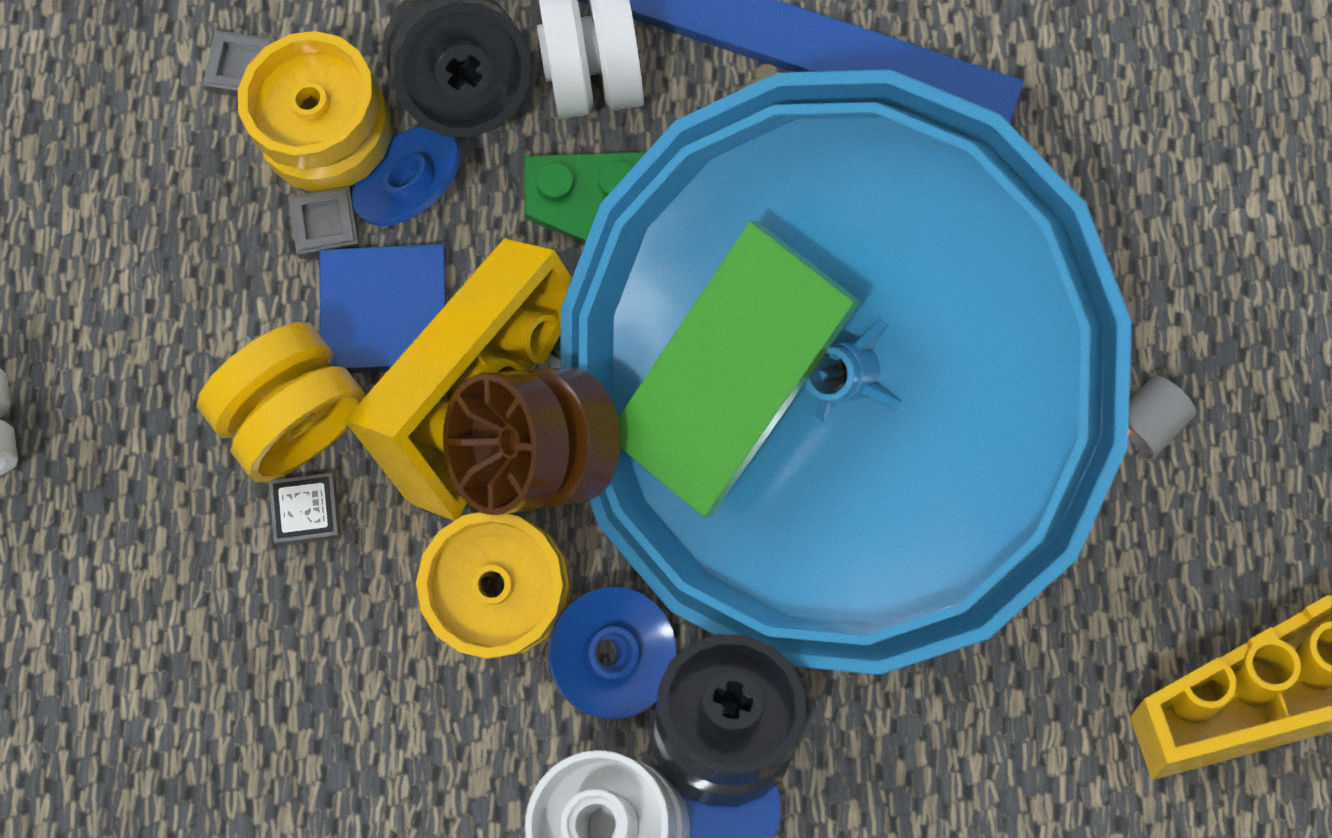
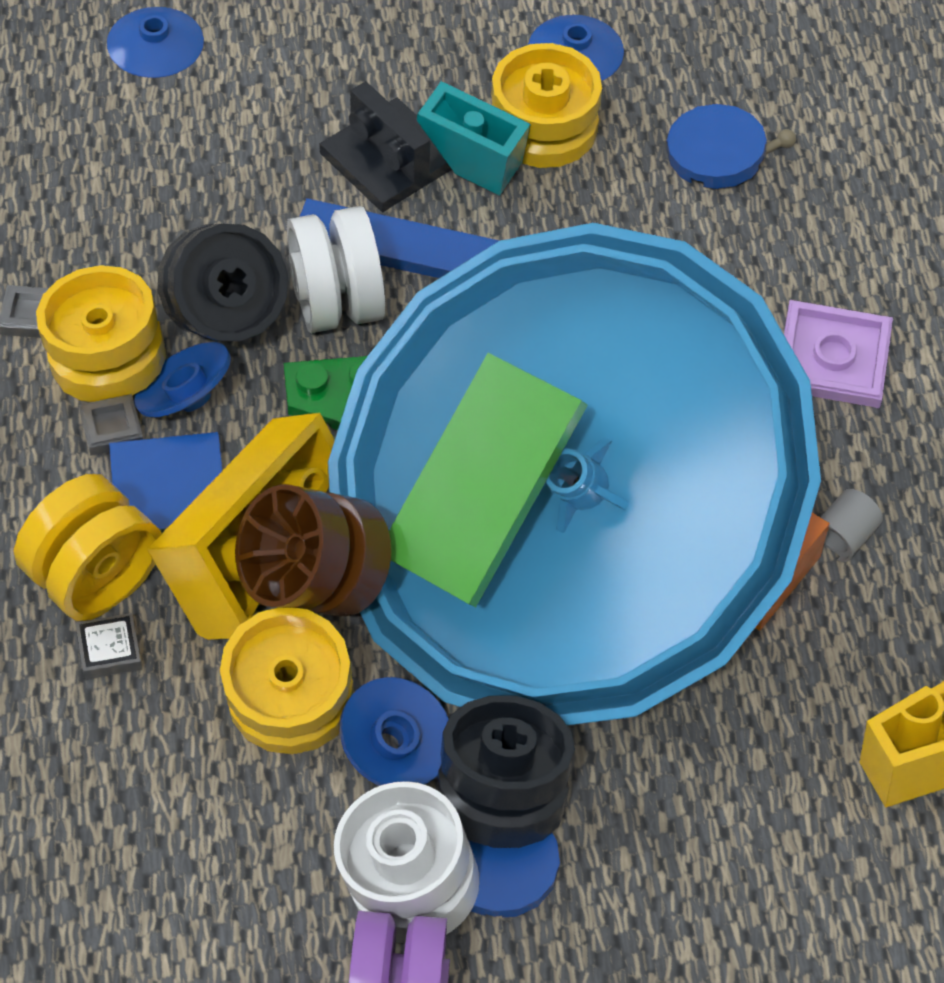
camera: 10 degrees left, 20 degrees down
(1167, 181) = (840, 351): none -> lavender tile

